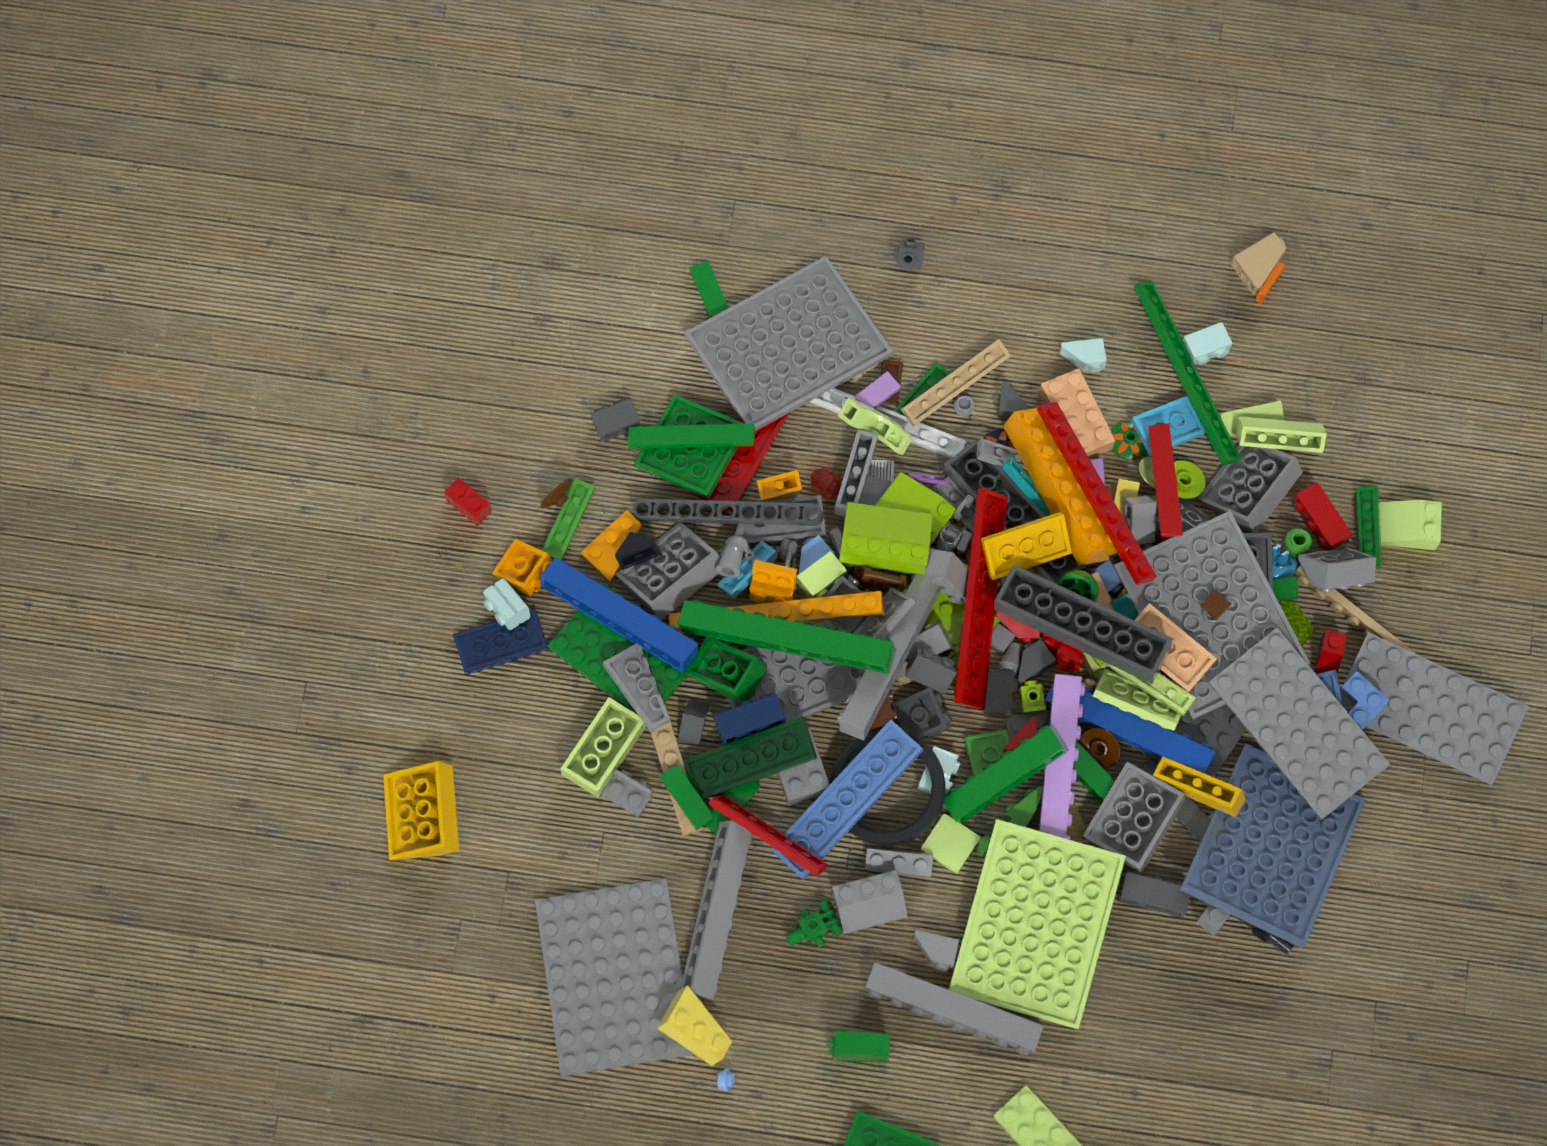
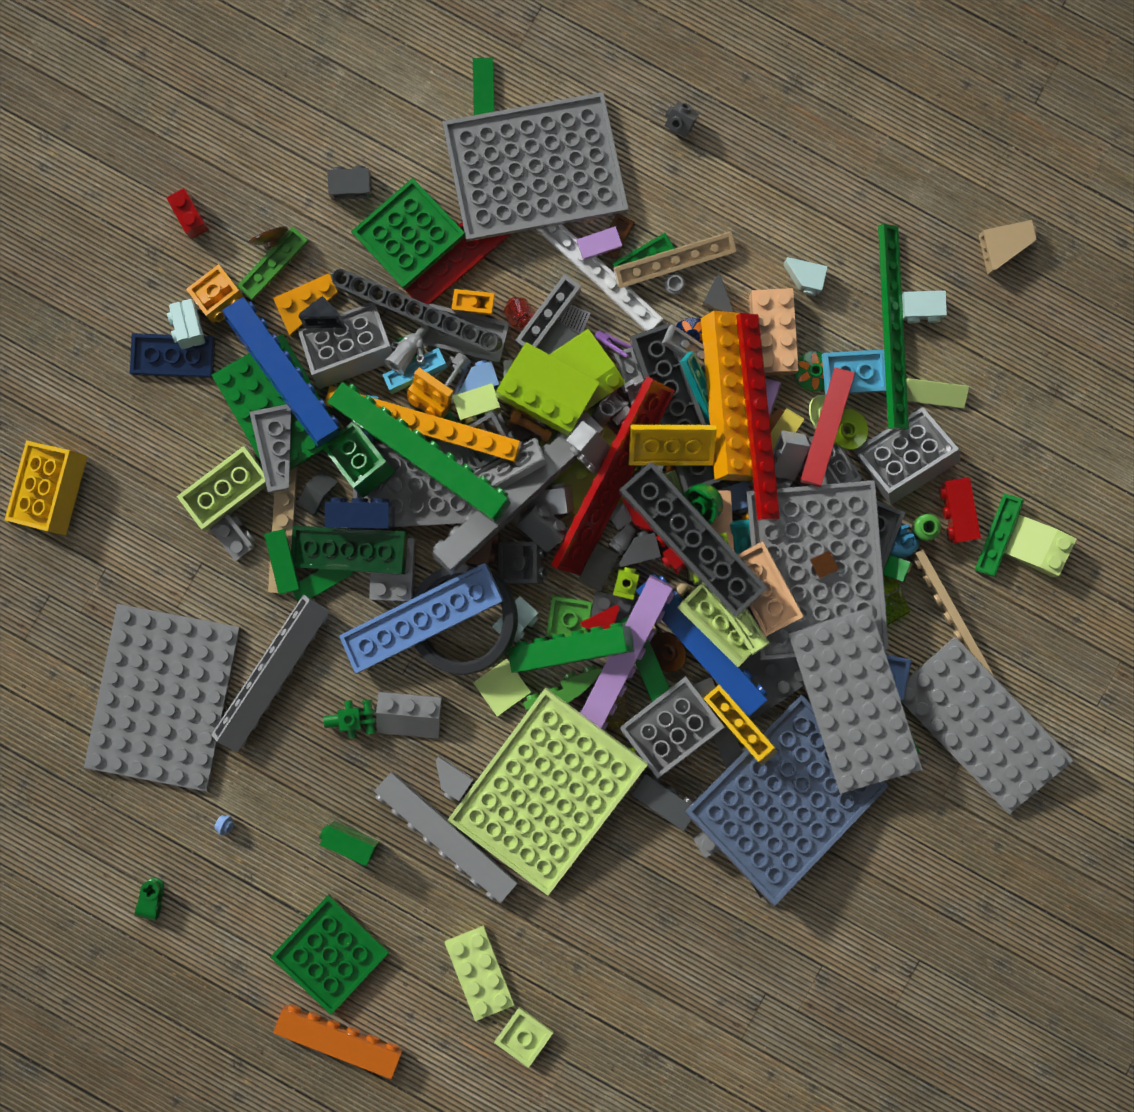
camera: 25 degrees right, 15 degrees up
(691, 436) = (410, 225): green tile -> none
(694, 1027) = (210, 771): light yellow wedge -> none
(768, 834) = (339, 624): red tile -> none
(870, 420) = (585, 273): yellowish green arch -> none
(901, 860) = (449, 687): light grey plate -> none
(1269, 282) = (1007, 266): orange tile -> none
(1281, 434) = (955, 419): yellowish green brick -> none
(1330, 651) = (913, 640): red slope -> none
(1338, 568) = (953, 566): light grey slope -> none
(1367, 698) = (927, 702): medium blue brick -> none

